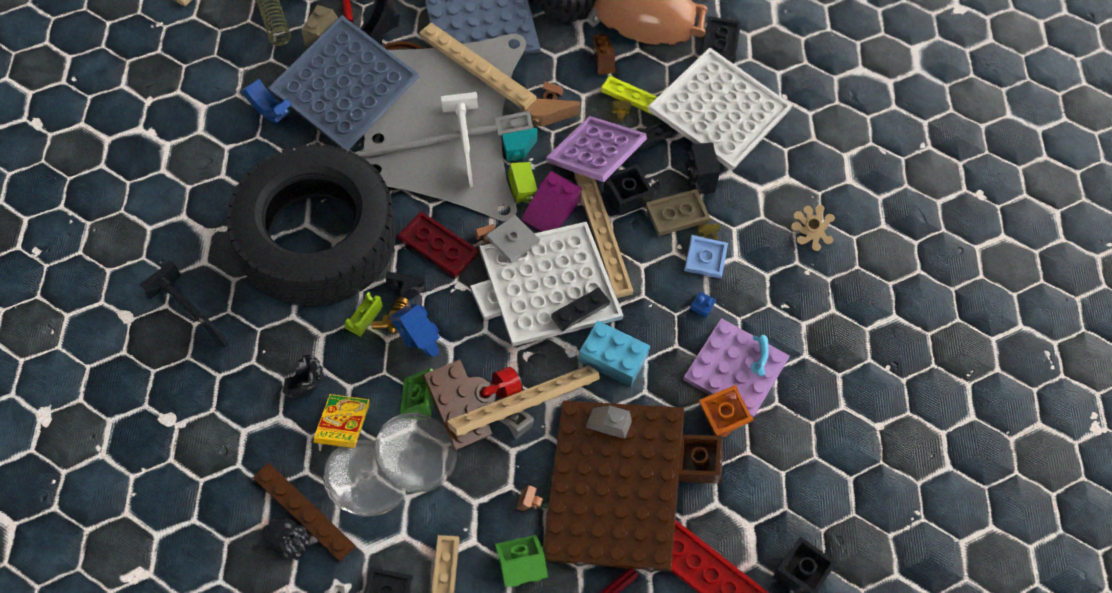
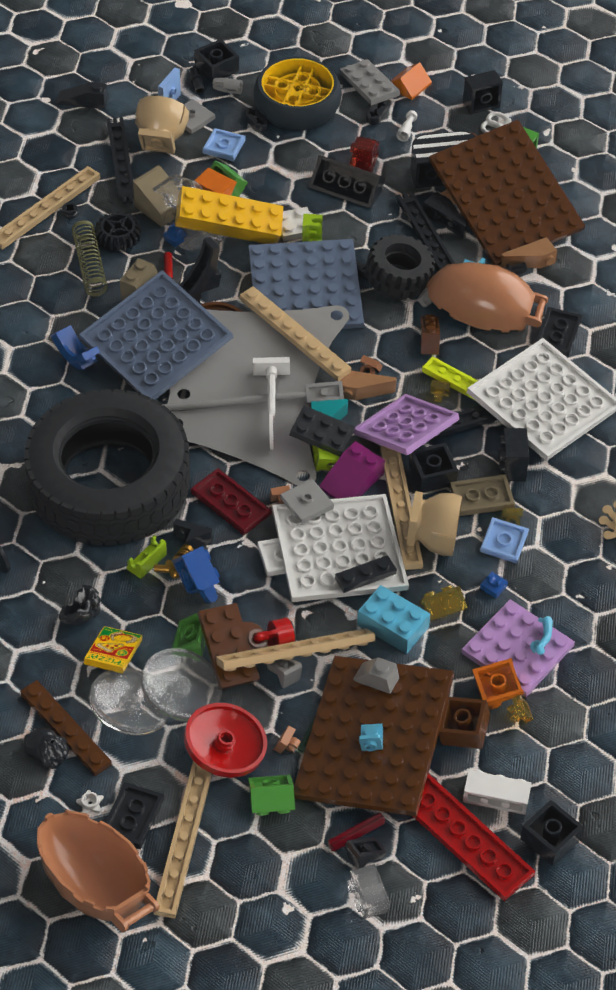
camera: 10 degrees right, 10 degrees down
(467, 508) = (225, 740): none -> red dish
(517, 164) = (322, 431): none -> black plate
(614, 491) = (371, 737): none -> medium azure bracket
(640, 248) = (435, 522): none -> tan plate
(659, 329) = (444, 603): none -> clear yellow bracket
(743, 528) = (497, 792): none -> white brick
(752, 435) = (522, 710): none -> clear yellow tile

